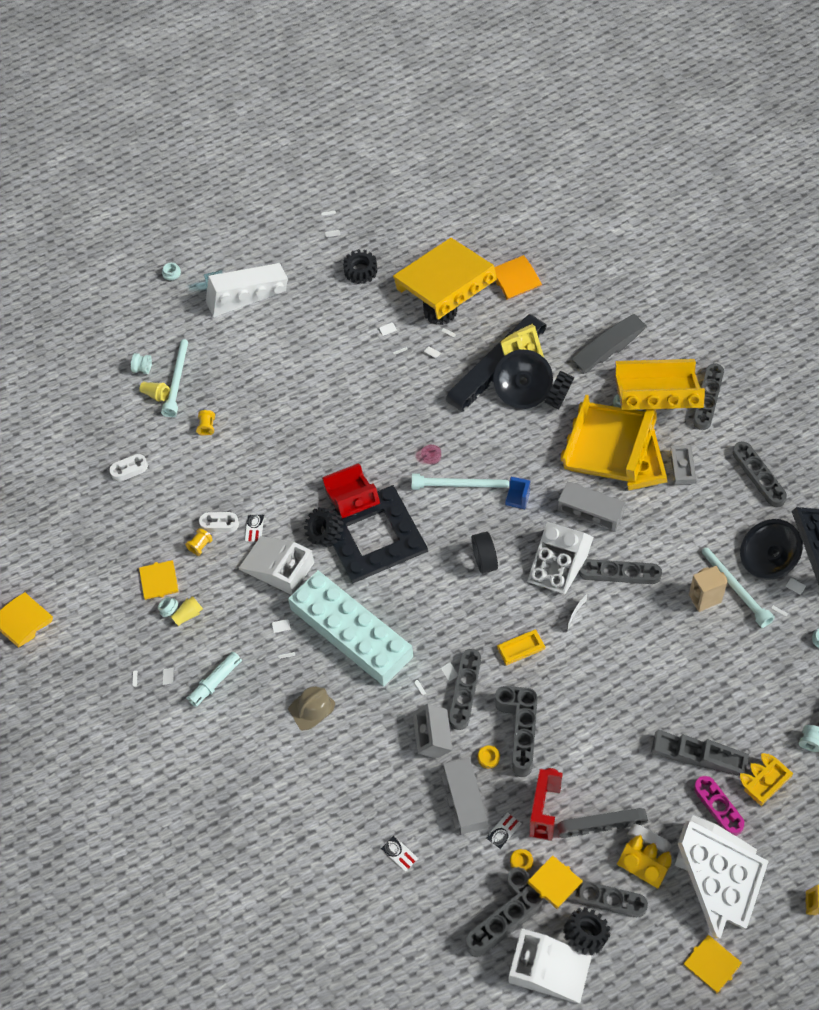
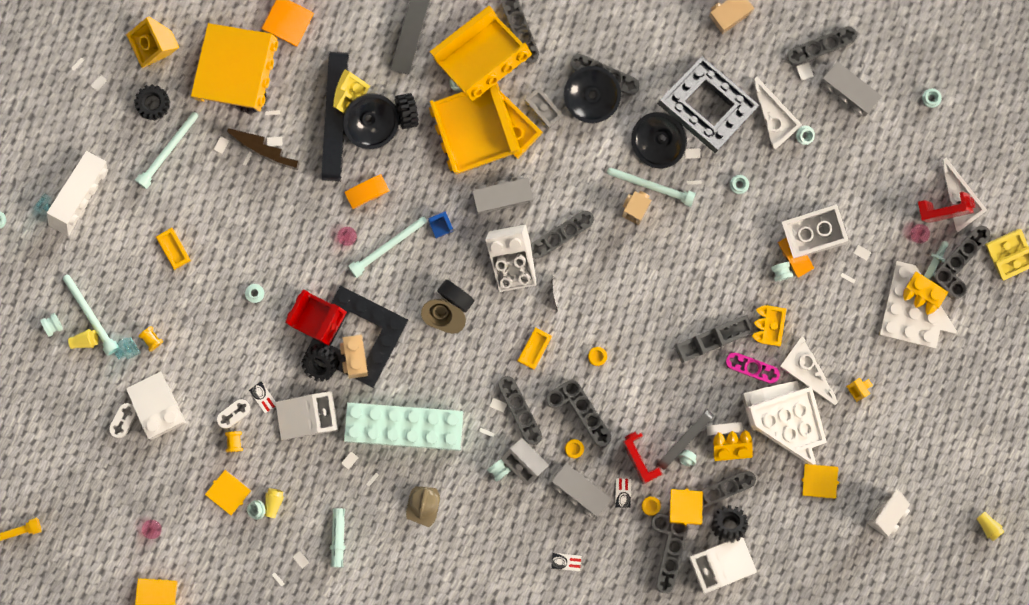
camera: 45 degrees left, 25 degrees up
(72, 564) = (151, 529): none -> clear pink tile
(162, 475) = (155, 406): none -> white slope
(181, 417) = (127, 349): none -> clear light blue tile
(283, 374) = (173, 248): none -> yellow tile
(308, 312) = (145, 178): none -> light aqua piece
(318, 450) = (259, 297): none -> light aqua plate
(355, 539) = (355, 356): none -> tan brick
(397, 227) = (151, 41): none -> yellow slope
(403, 723) = (499, 470): none -> light aqua wheel
(418, 349) = (257, 145): none -> dark brown slope
(460, 561) = (443, 316): none -> dark tan piece
(480, 431) = (366, 191): none -> light orange slope
(574, 693) = (597, 356): none -> yellow tile
(591, 840) = (687, 458): none -> light aqua plate
(739, 466) = (587, 80): none -> black dish
(773, 842) = (802, 366): none -> white wing

